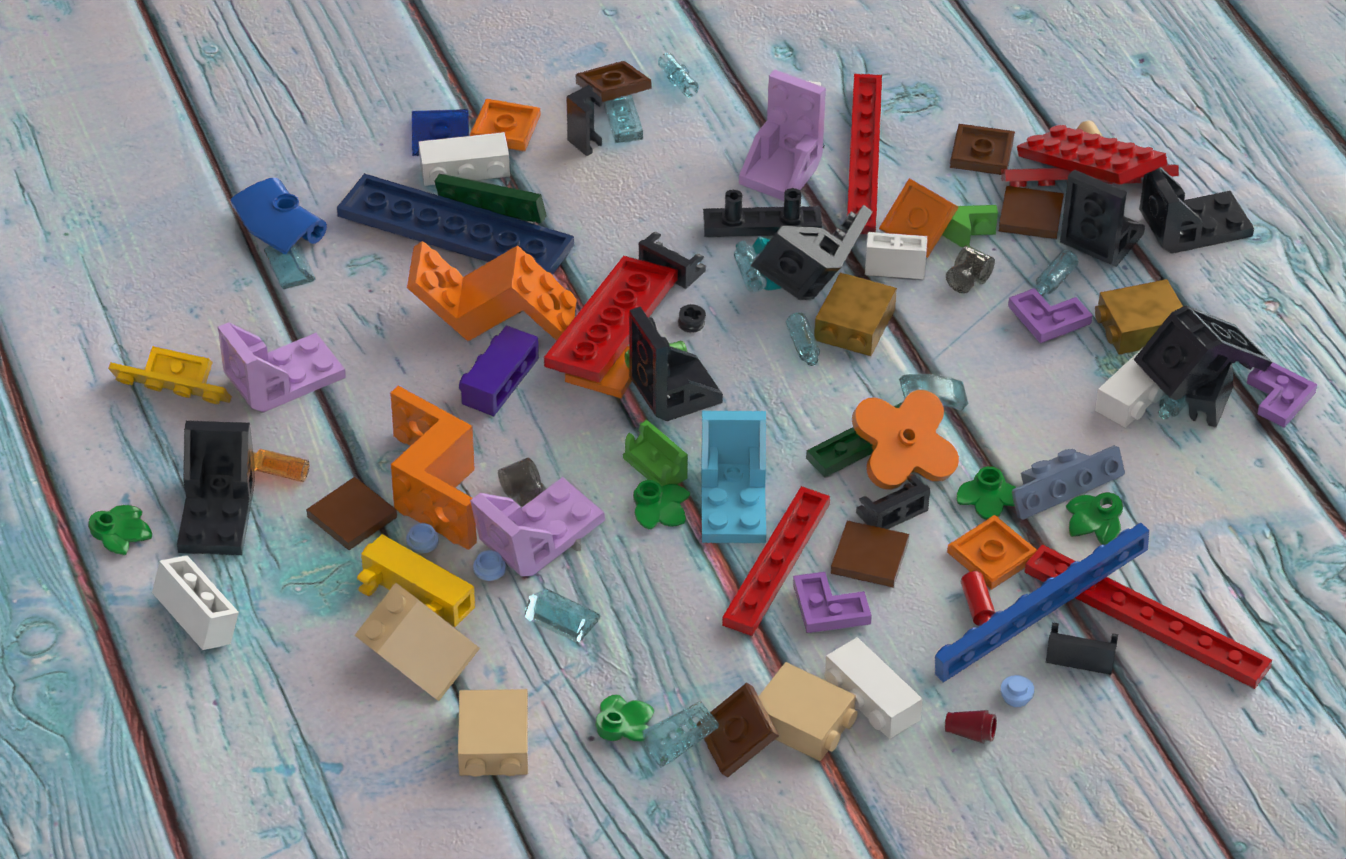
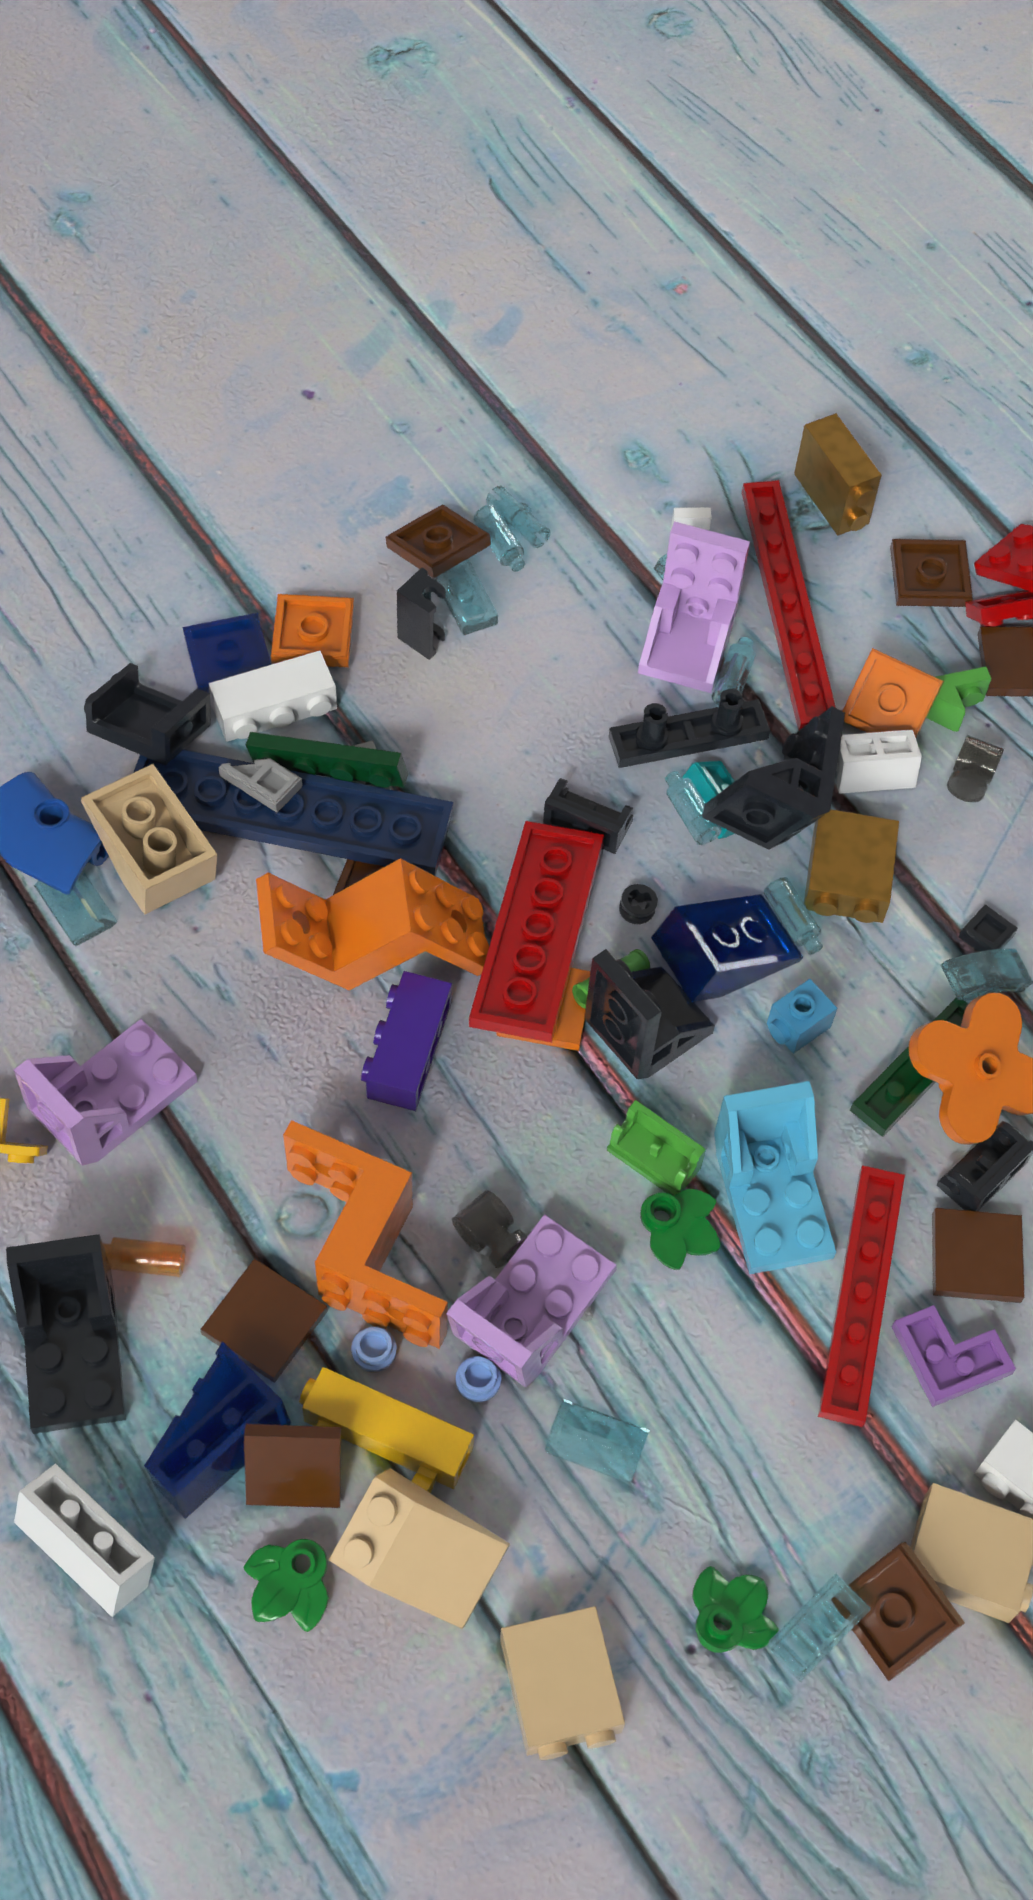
camera: 15 degrees left, 15 degrees up
(299, 562) = (207, 1439): none -> clear blue wedge
(323, 656) = (286, 1589): none -> green plate
(345, 583) = (292, 1465): none -> reddish brown tile
(351, 226) = (150, 838): none -> tan slope
(367, 160) = (145, 718): none -> black panel
(443, 205) = (264, 781): none -> light grey tile
(661, 85) = (503, 540): none -> clear light blue cylinder
(744, 347) = (724, 945): none -> clear blue slope
(787, 396) = (801, 1016): none -> dark azure brick
(813, 186) = (735, 668): none -> clear light blue cylinder
(924, 74) = (837, 474): none -> pearl gold brick
(947, 366) = (988, 930): none -> black tile

